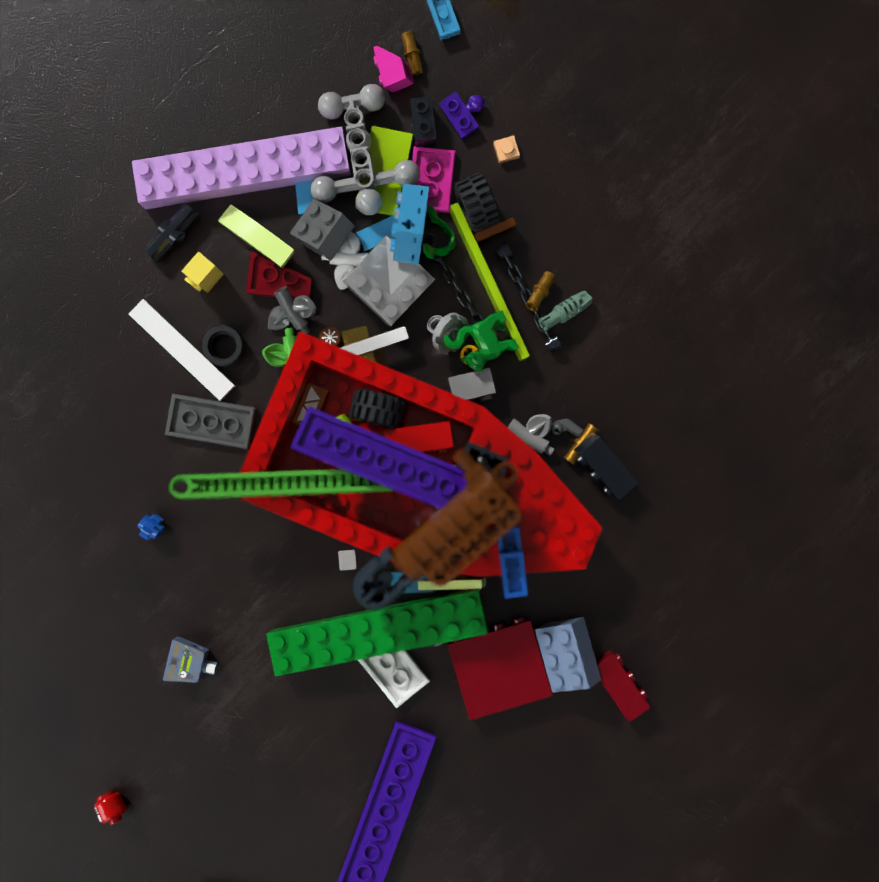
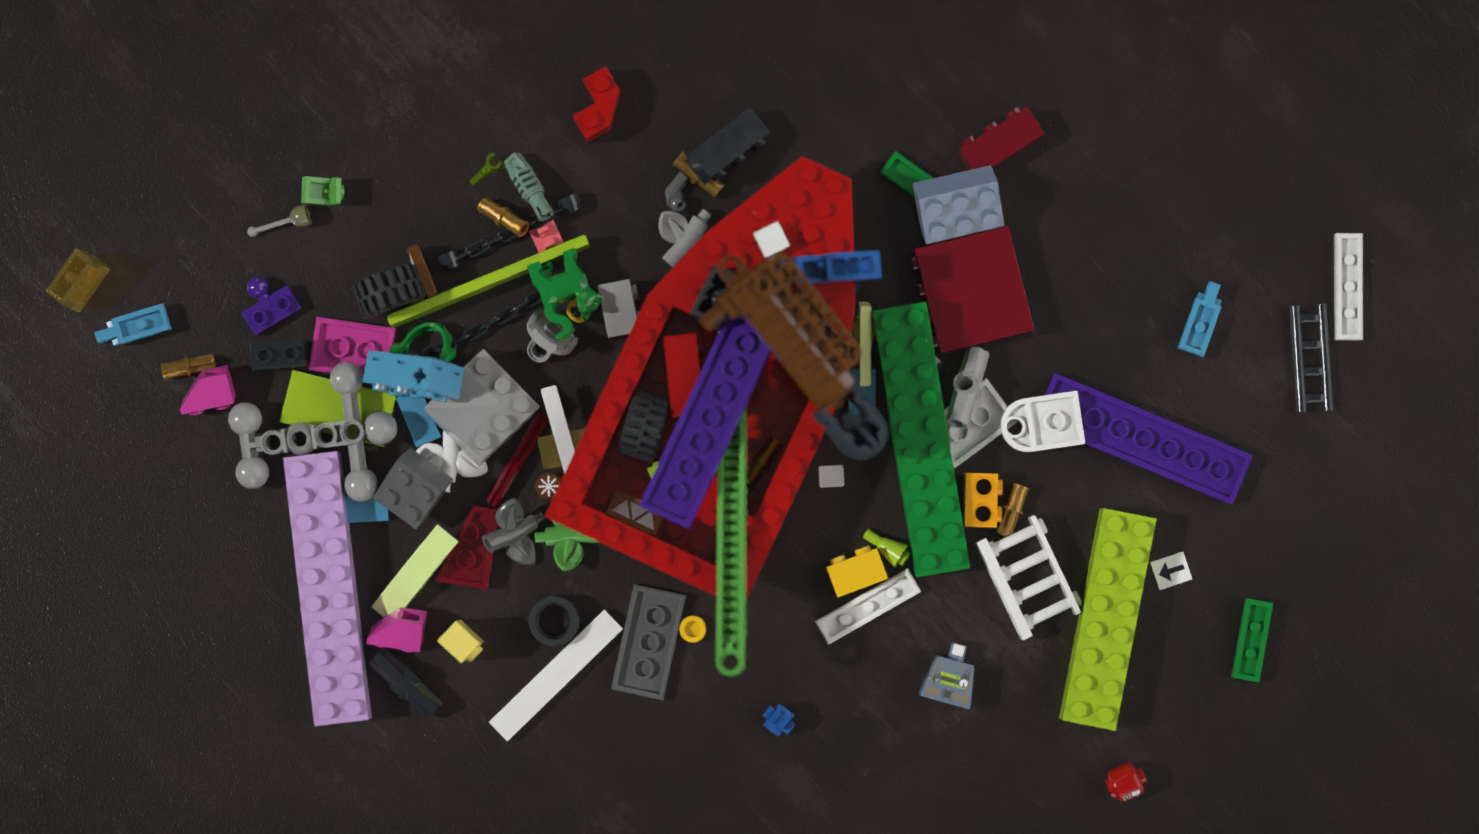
camera: 90 degrees left, 0 degrees up
(211, 226) = (400, 630): none -> dark pink slope
(222, 455) = (692, 628): none -> yellow tile
(239, 788) = (1107, 619): none -> lime brick
(245, 593) = (868, 606): none -> white tile
(253, 710) = (1014, 598): none -> white fence
(271, 583) = (856, 572): none -> yellow brick
(282, 835) = (1171, 570): none -> white sticker
(289, 611) = (893, 551): none -> lime cone
(325, 706) = (1012, 510): none -> pearl gold axle
(330, 675) = (973, 500): none -> light orange brick
(349, 312) = (517, 459): none -> dark red axle
(355, 505) = (762, 461): none -> pearl gold pin
(395, 731) = (1045, 421): none -> white tile
(408, 665) = (964, 401): none -> light grey piece
(483, 854) = (1201, 321): none -> dark azure hinge
(506, 149) = (317, 251): light nougat plate -> none
(526, 326) = (546, 236): none -> coral tile
(532, 505) = (771, 239): none -> white tile
(533, 133) = (299, 217): none -> hinge
(554, 149) = (322, 191): none -> bright green bracket
(577, 277) = (485, 170): none -> clear neon green hand
(590, 608) = (903, 173): none -> green tile
(624, 363) = (599, 116): none -> red brick

